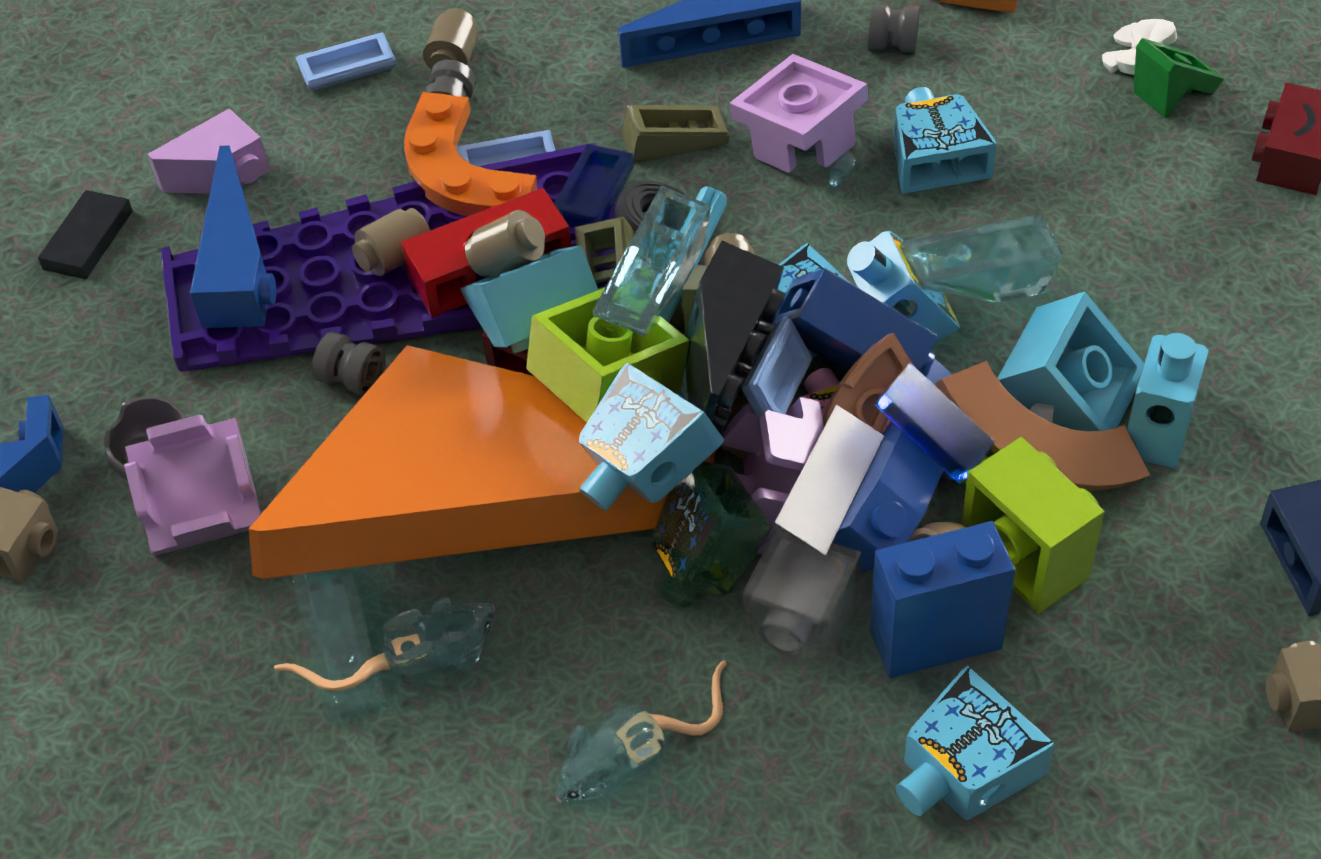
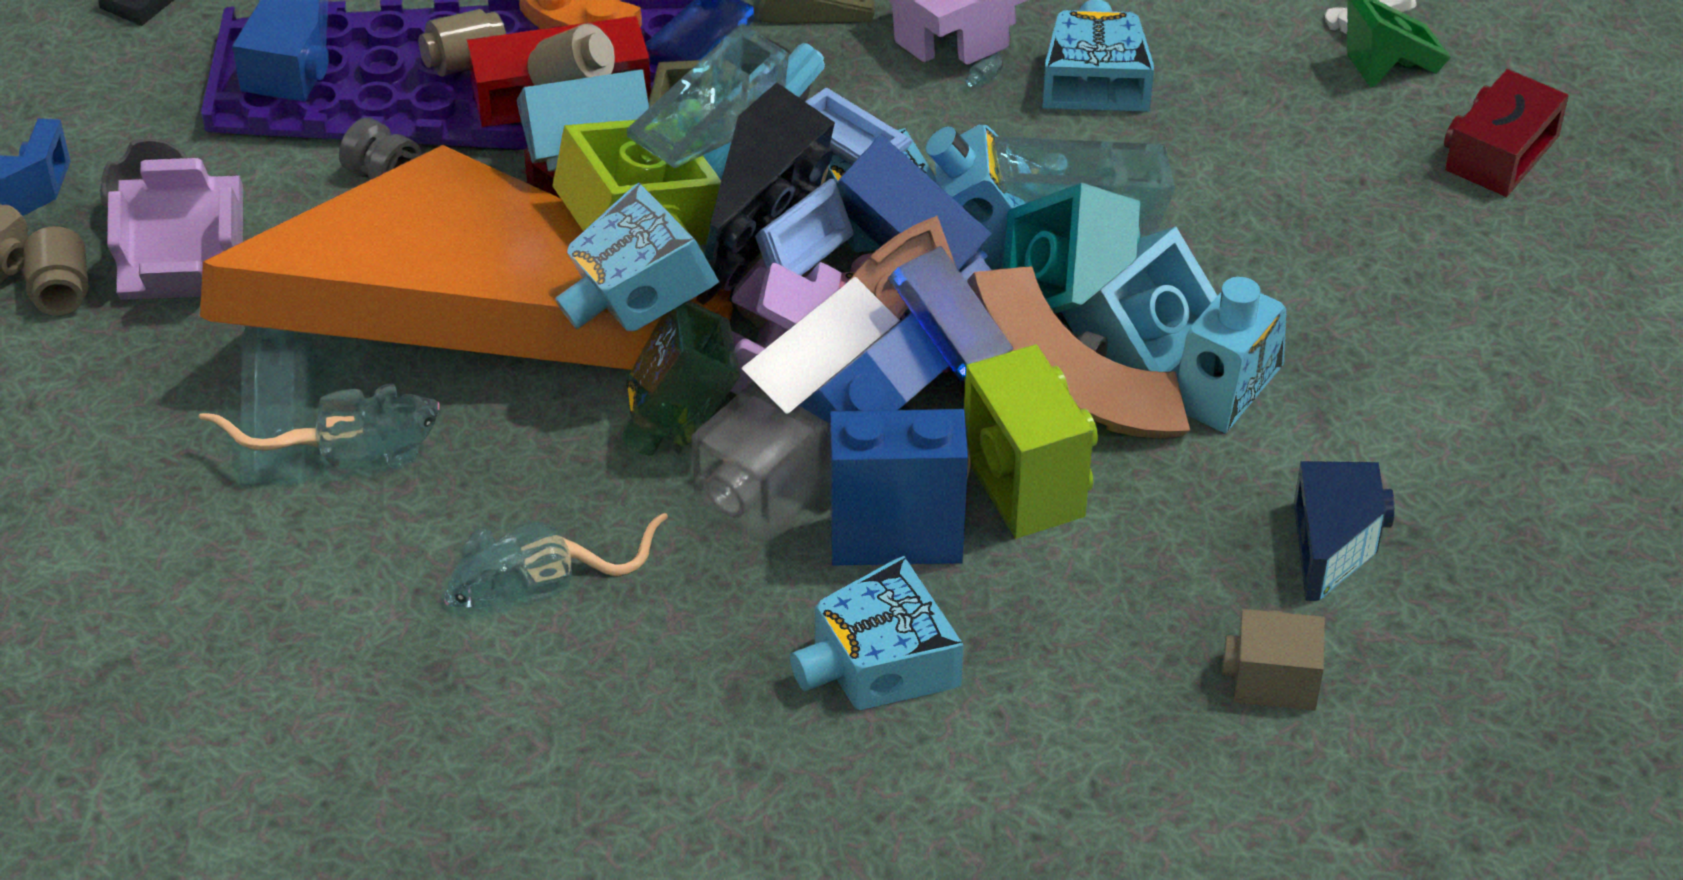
camera: 10 degrees right, 5 degrees down
(88, 544) = (55, 270): none -> dark tan brick
(795, 259) = (853, 126): none -> light blue tile
(1006, 323) = (1073, 241): none -> teal slope

